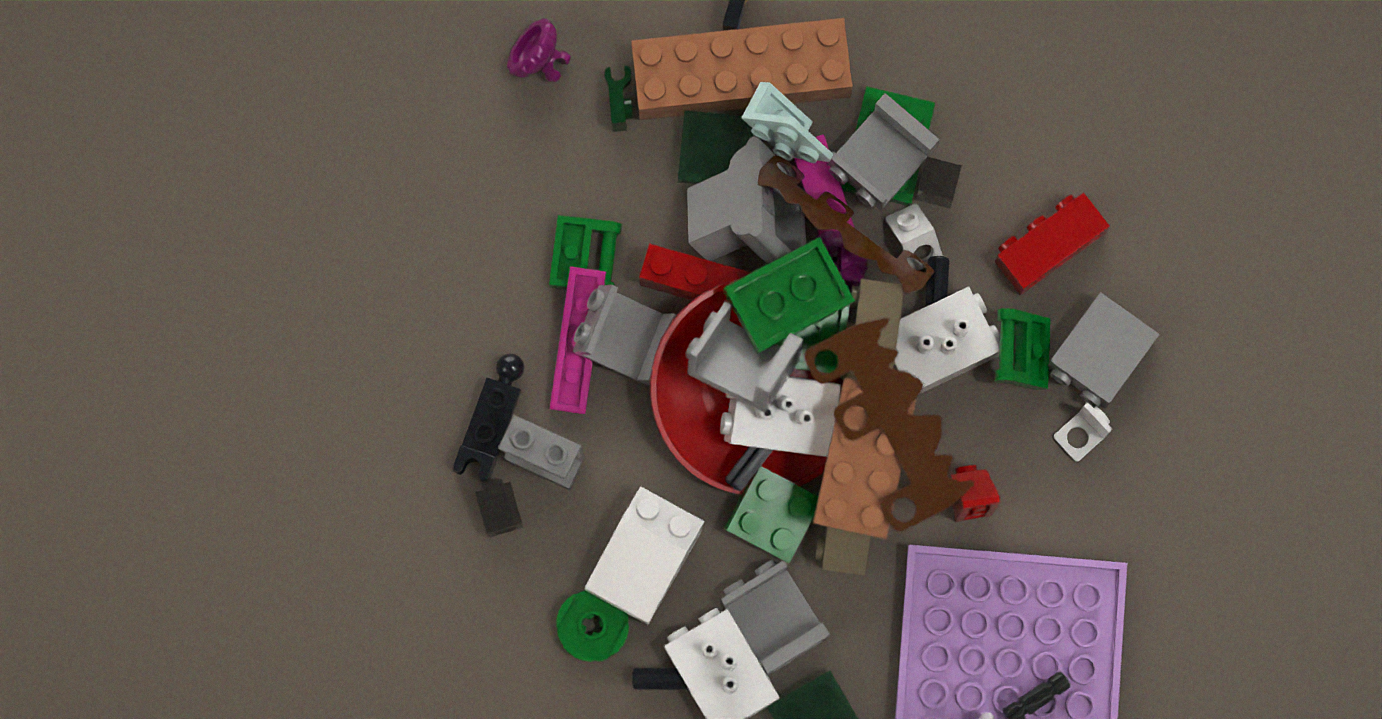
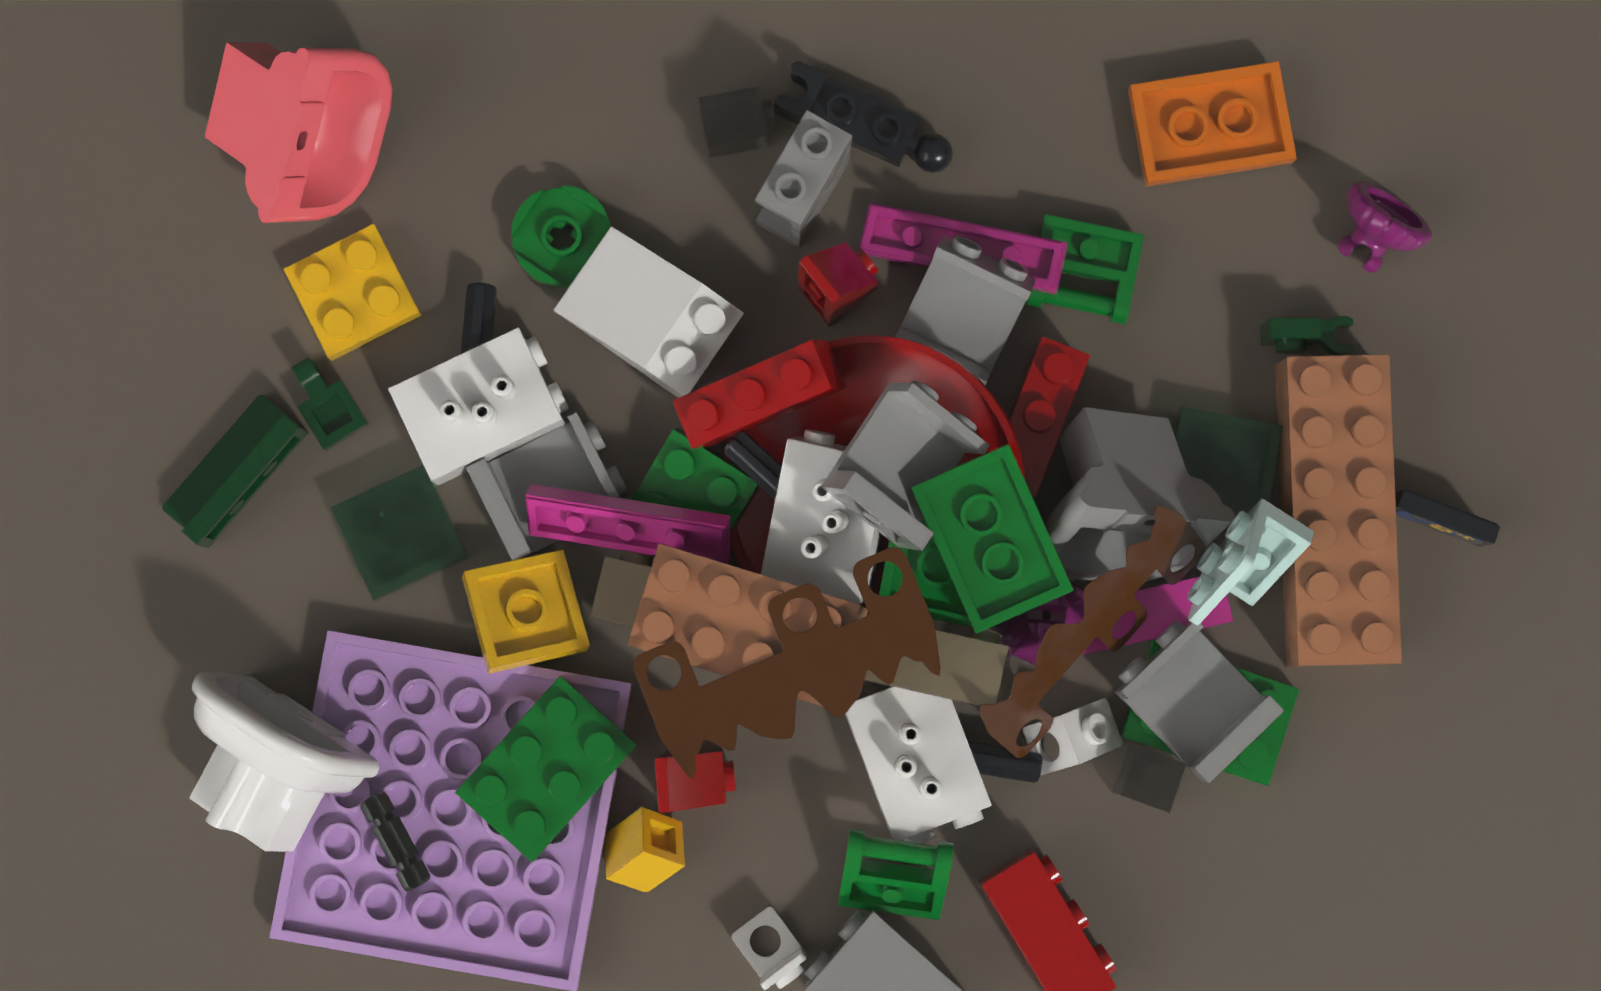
camera: 85 degrees right, 5 degrees up
(473, 175) = (1212, 123): none -> orange plate
(611, 423) = (836, 280): none -> red slope
(699, 467) = (759, 393): none -> red brick
(797, 556) = (625, 523): none -> dark pink tile
(865, 623) = (525, 611): none -> yellow plate
(974, 597) = (546, 768): none -> green plate
(1024, 525) = (644, 850): none -> yellow panel

